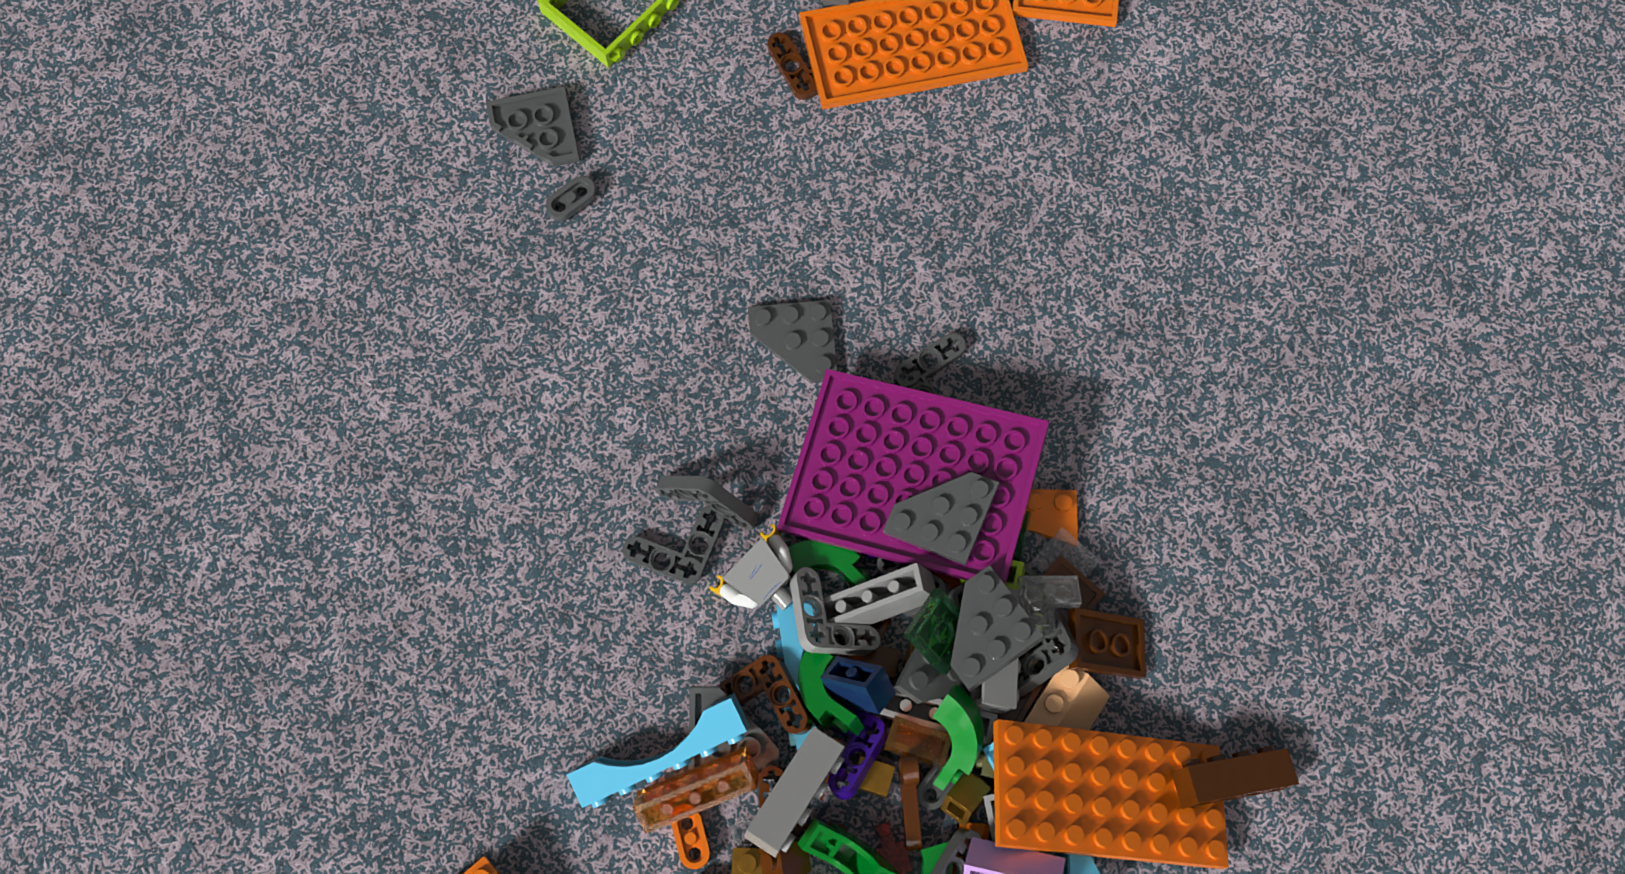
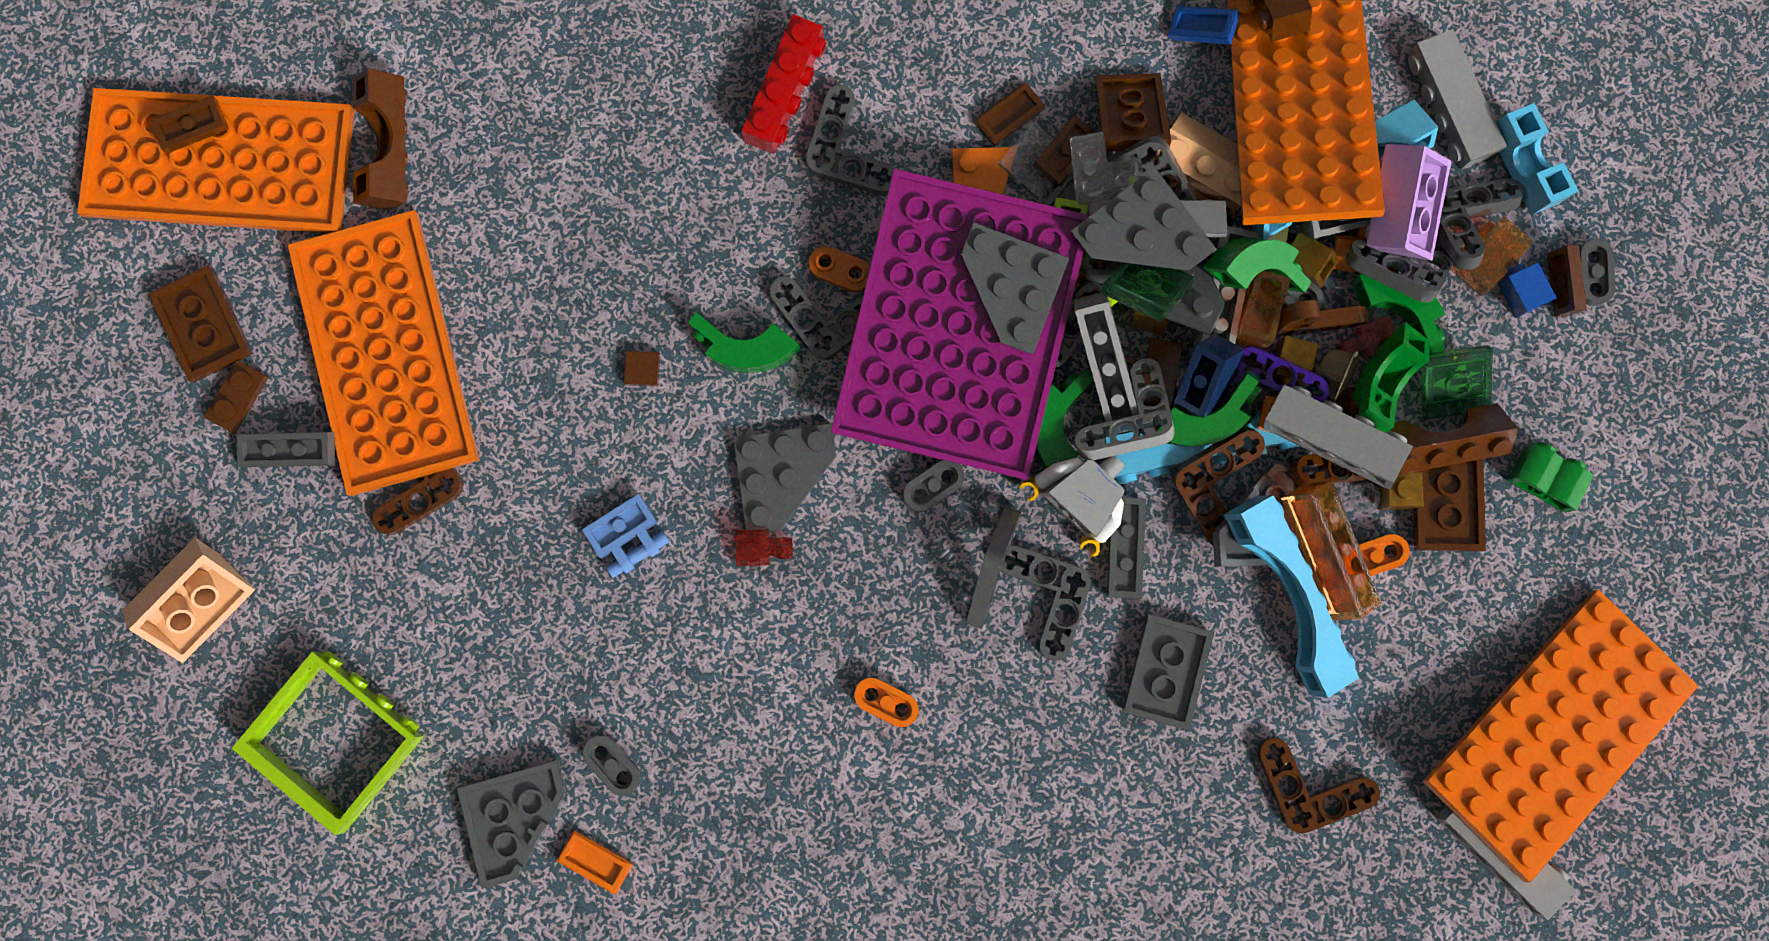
camera: 90 degrees left, 10 degrees up
(478, 762) = (1311, 804): none -> reddish brown beam
(497, 185) = (594, 862): none -> orange tile
(598, 409) = (886, 702): none -> orange plate
(604, 644) = (1168, 672): none -> dark grey plate
(713, 616) = (1127, 552): none -> dark grey plate
(736, 314) = (755, 547): none -> clear red plate
(761, 211) = (620, 527): none -> medium blue plate
(778, 459) = (934, 487): none -> dark grey plate
(858, 814) = (1338, 369): none -> dark tan piece
(891, 233) = (642, 368): none -> reddish brown tile
(899, 323) = (744, 356): none -> green arch
(971, 390) = (838, 271): none -> orange plate
(1070, 393) = (839, 158): none -> dark grey beam
(1108, 543) = (1009, 114): none -> reddish brown tile
(1119, 43) = (382, 102): none -> reddish brown arch
(1134, 351) = (783, 84): none -> red brick
(1191, 719) = (1203, 24): none -> blue tile

